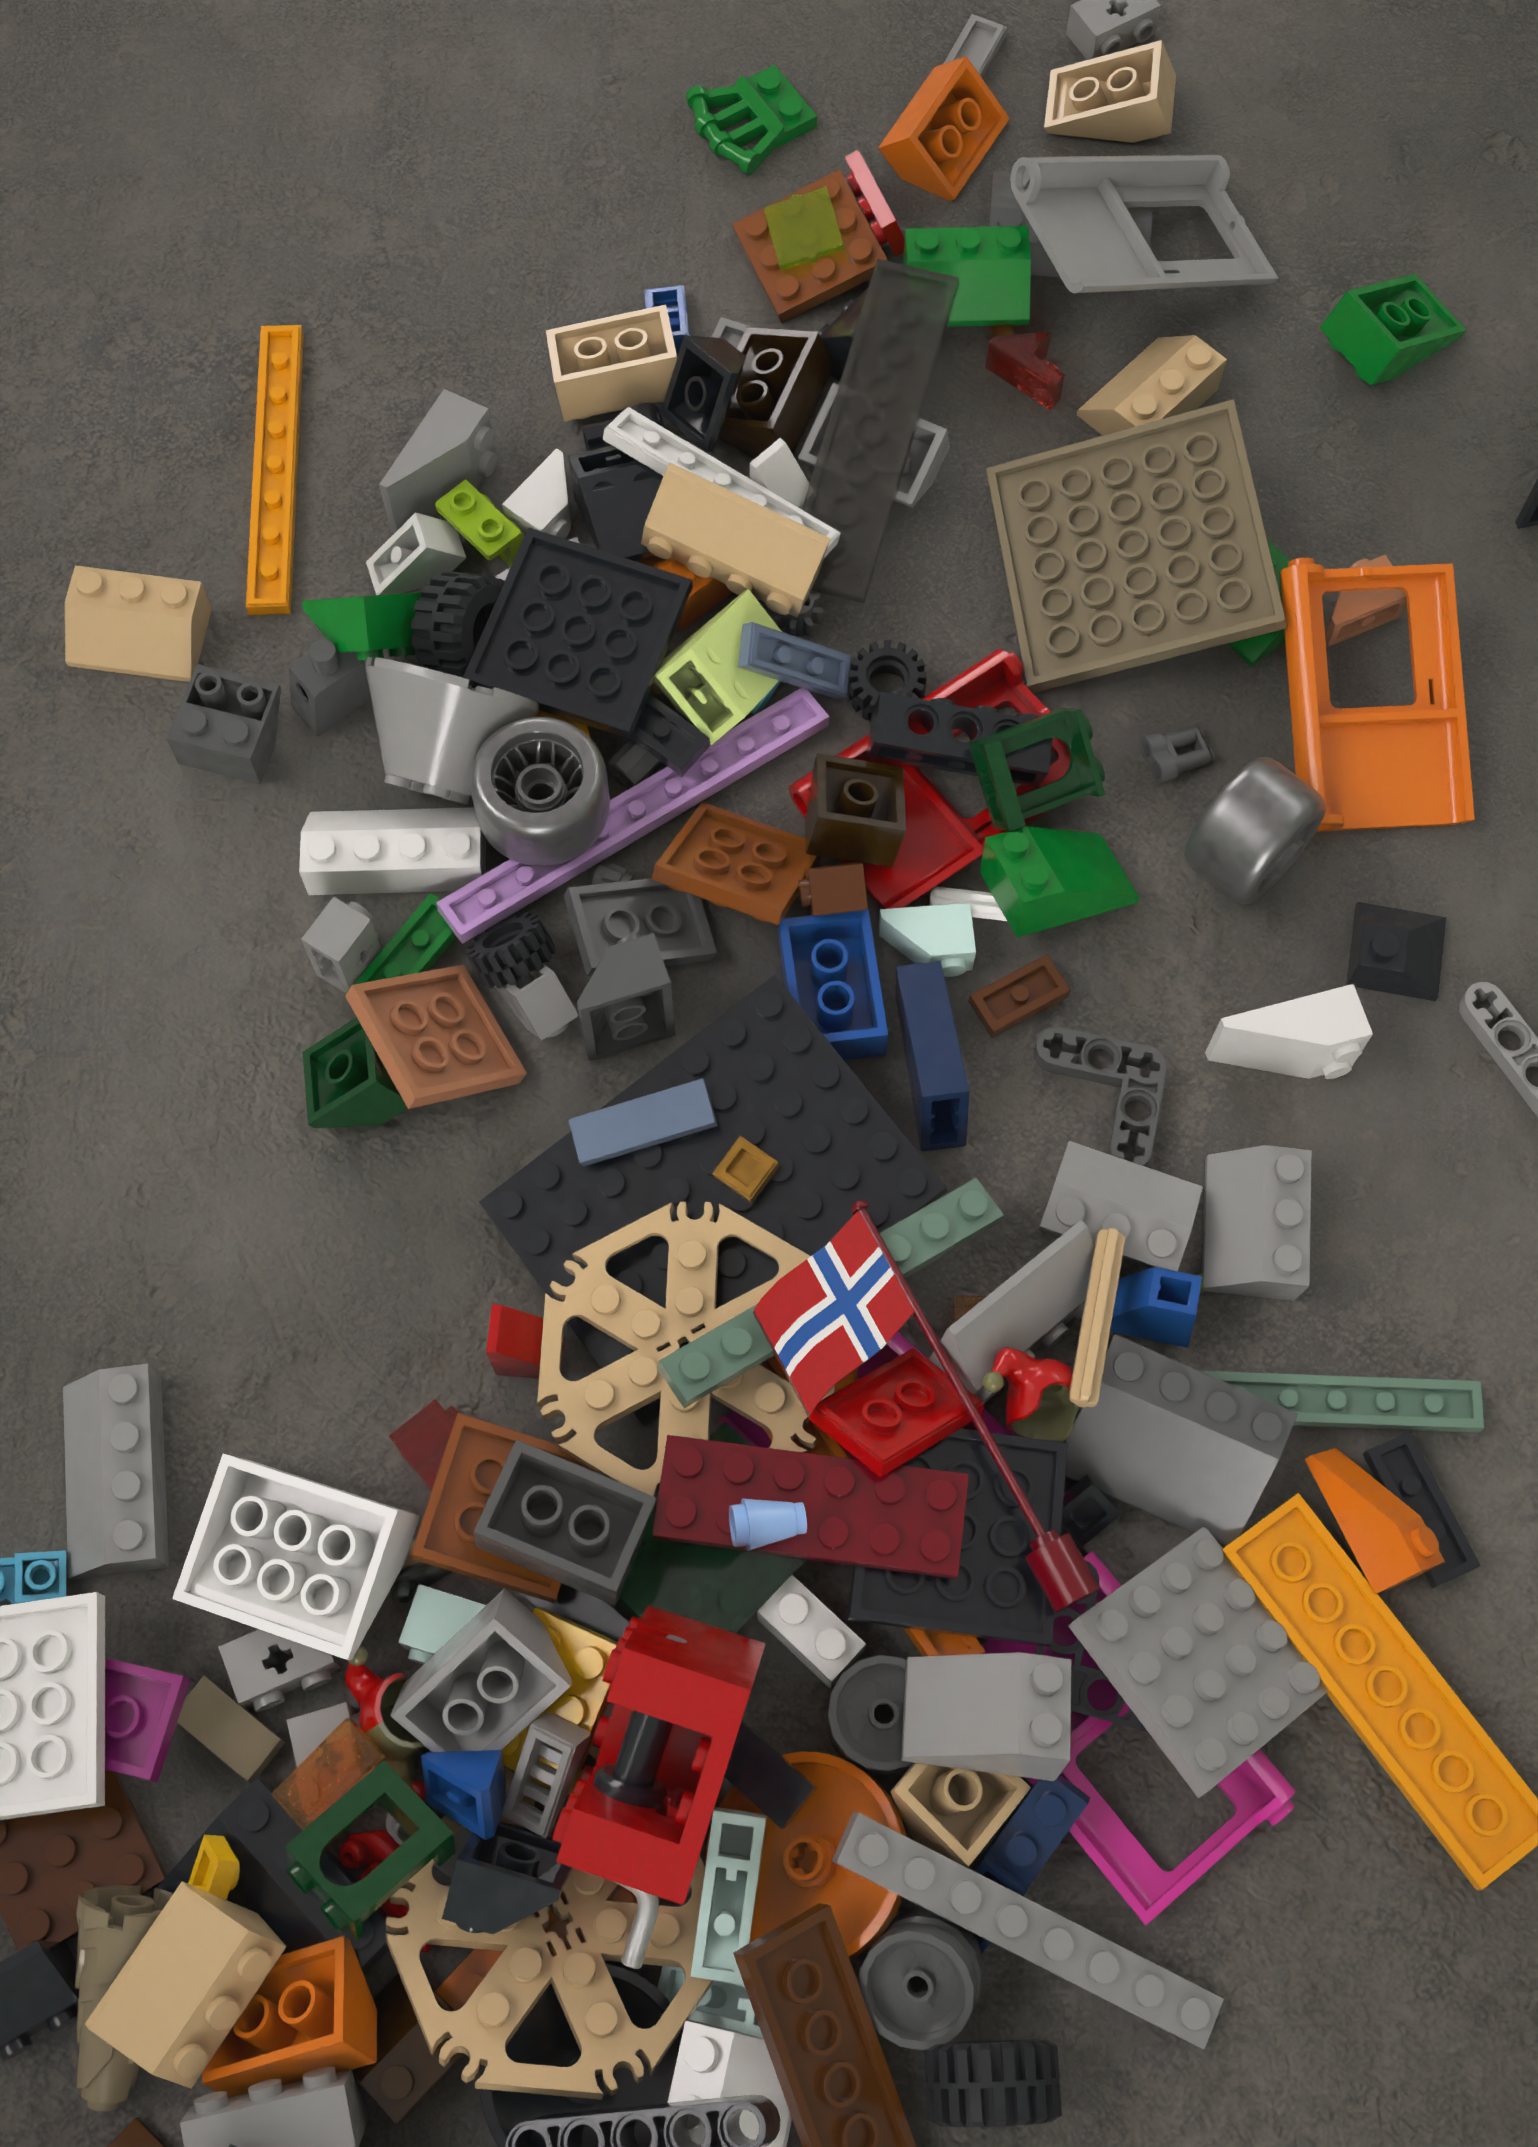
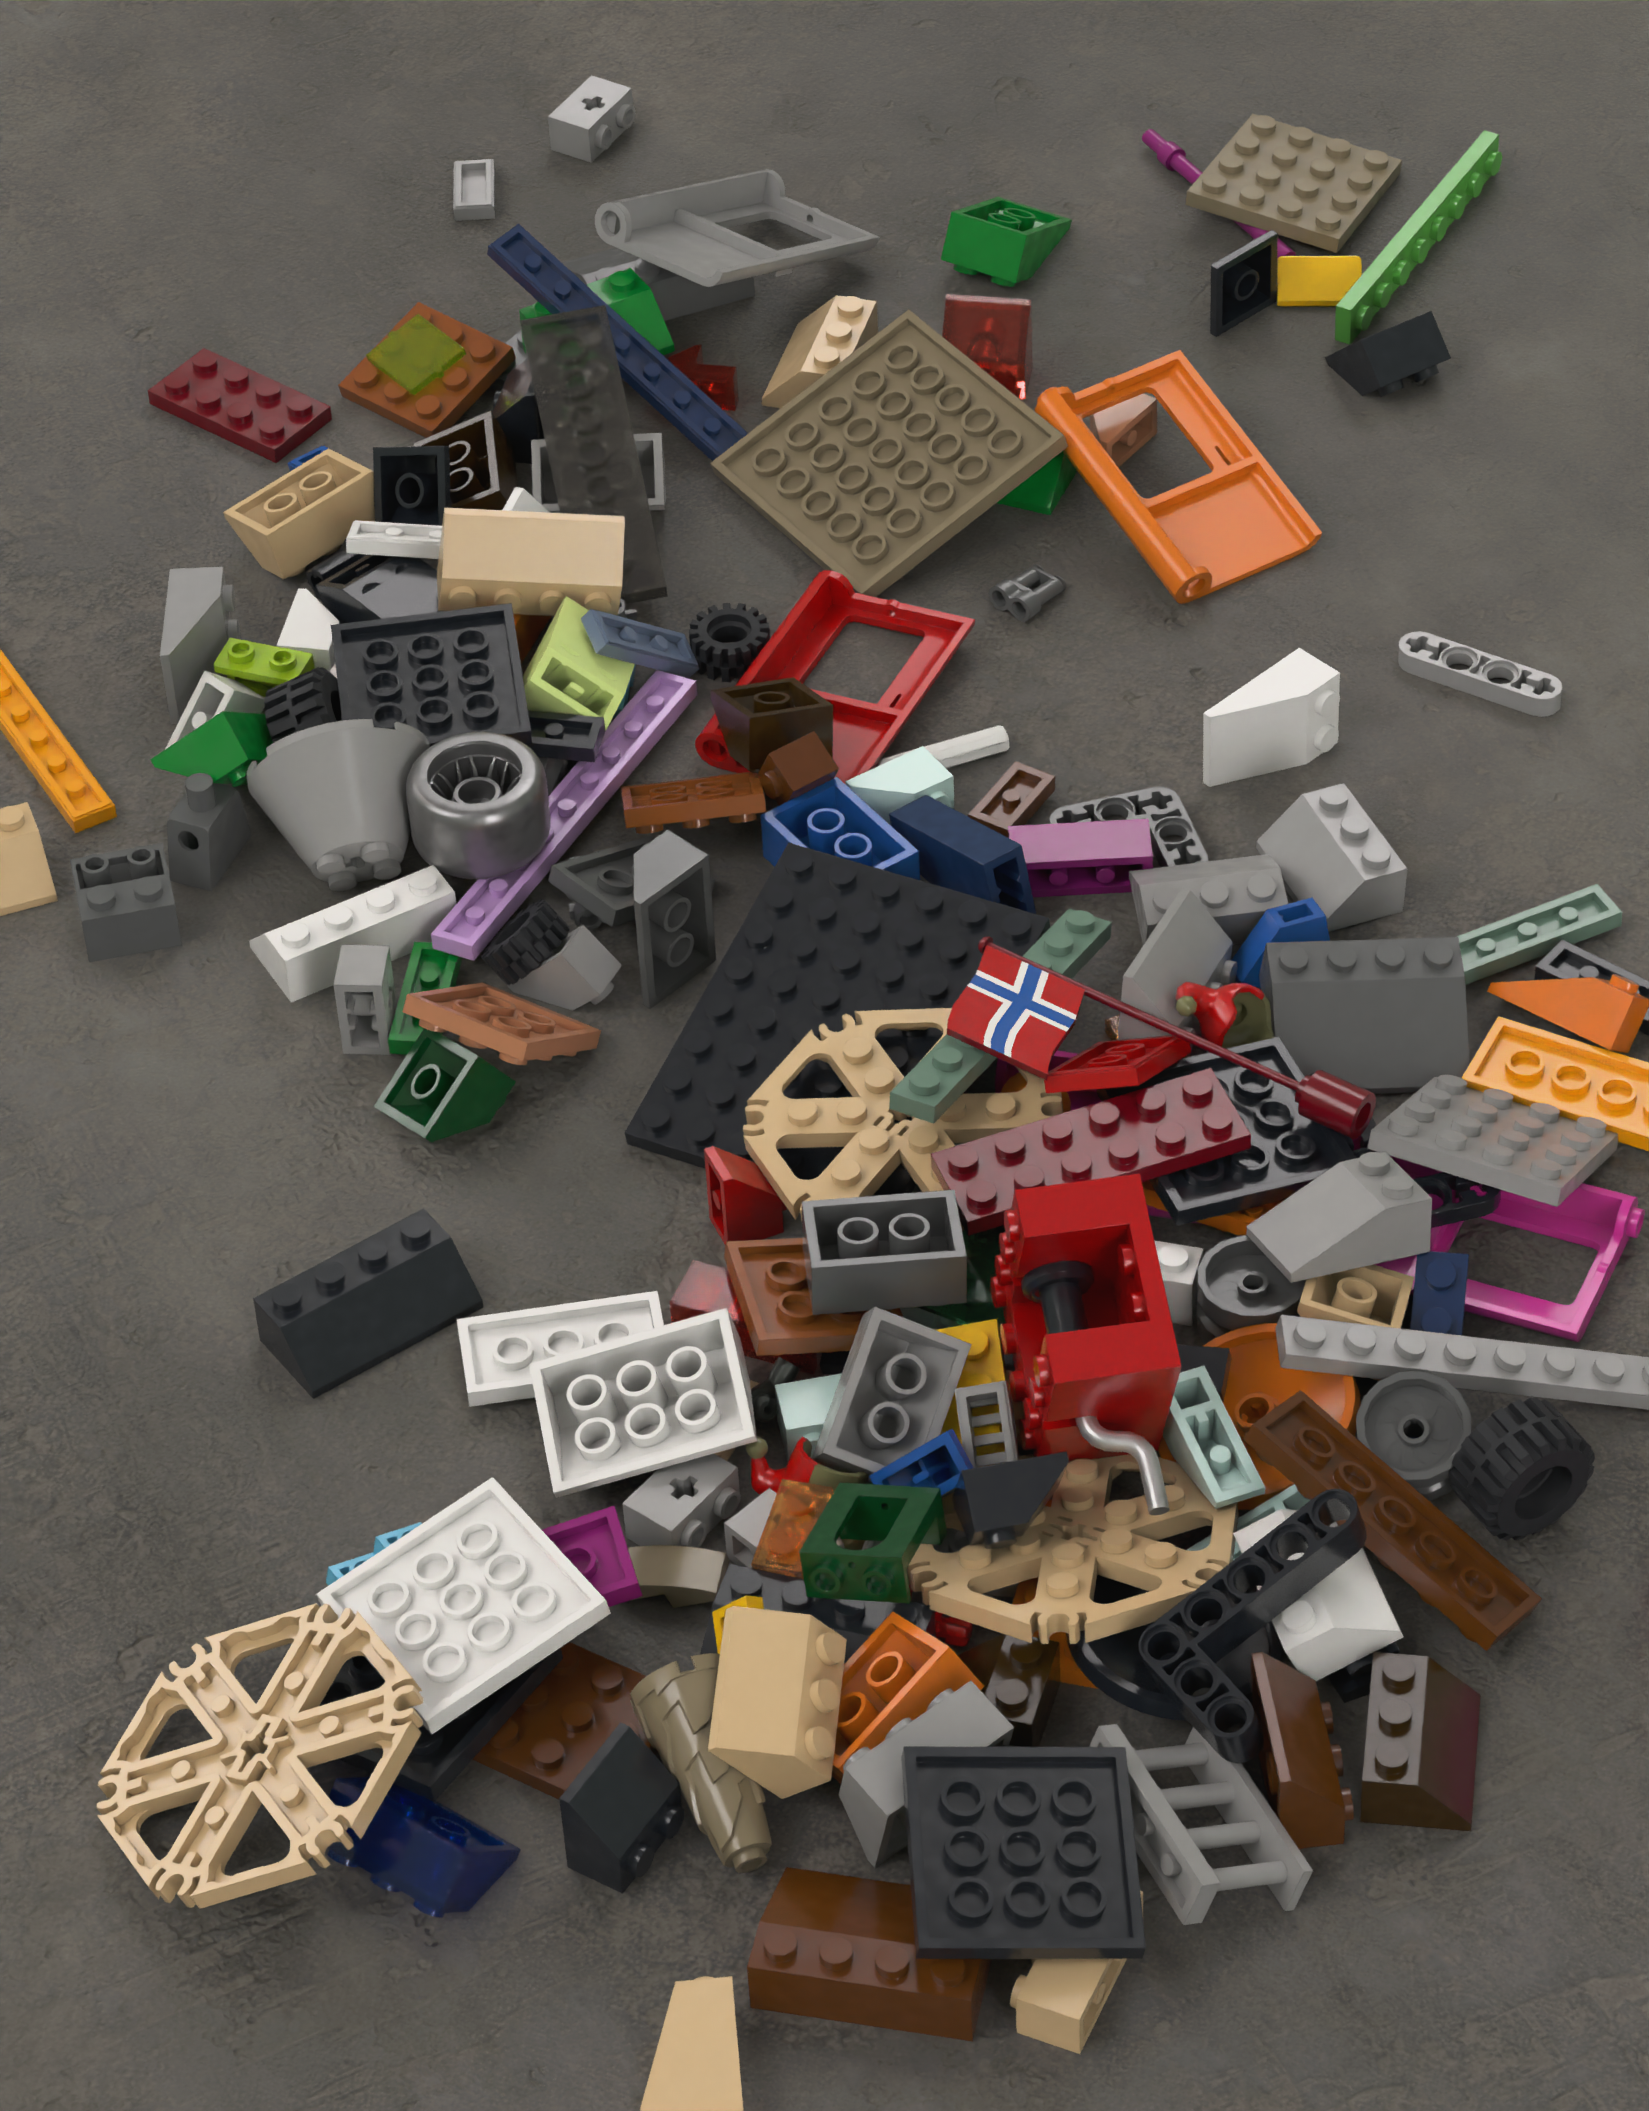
camera: 25 degrees left, 25 degrees down
(115, 1473) = (417, 1437): light grey slope -> none
(160, 1283) = (366, 1303): none -> black slope
(290, 1420) = (502, 1345): none -> white plate
(642, 1122) = (743, 992): sand blue tile -> none
(644, 205) = (240, 405): none -> dark red plate
(746, 1169) = (861, 981): pearl gold tile -> none
(765, 1522) = (1060, 1153): light blue cone -> none
(767, 100) = (300, 290): green plate -> none
(874, 204) = (476, 313): plate -> none
(939, 749) = (832, 637): black brick -> none
(945, 130) = (474, 224): orange slope -> none
(972, 312) = (637, 359): none -> dark blue tile
(1039, 1094) = (1083, 855): none -> brick
(1052, 877) = (977, 707): green slope -> none
(1081, 779) = (890, 640): dark green panel -> none
(1097, 1318) = (1243, 942): tan axle -> none
(1114, 96) = (631, 163): tan slope -> none
(1254, 830) = (1139, 593): flat silver wheel -> none
(1297, 456) = (994, 336): none -> clear red slope
(1396, 951) = (1325, 636): black slope -> none

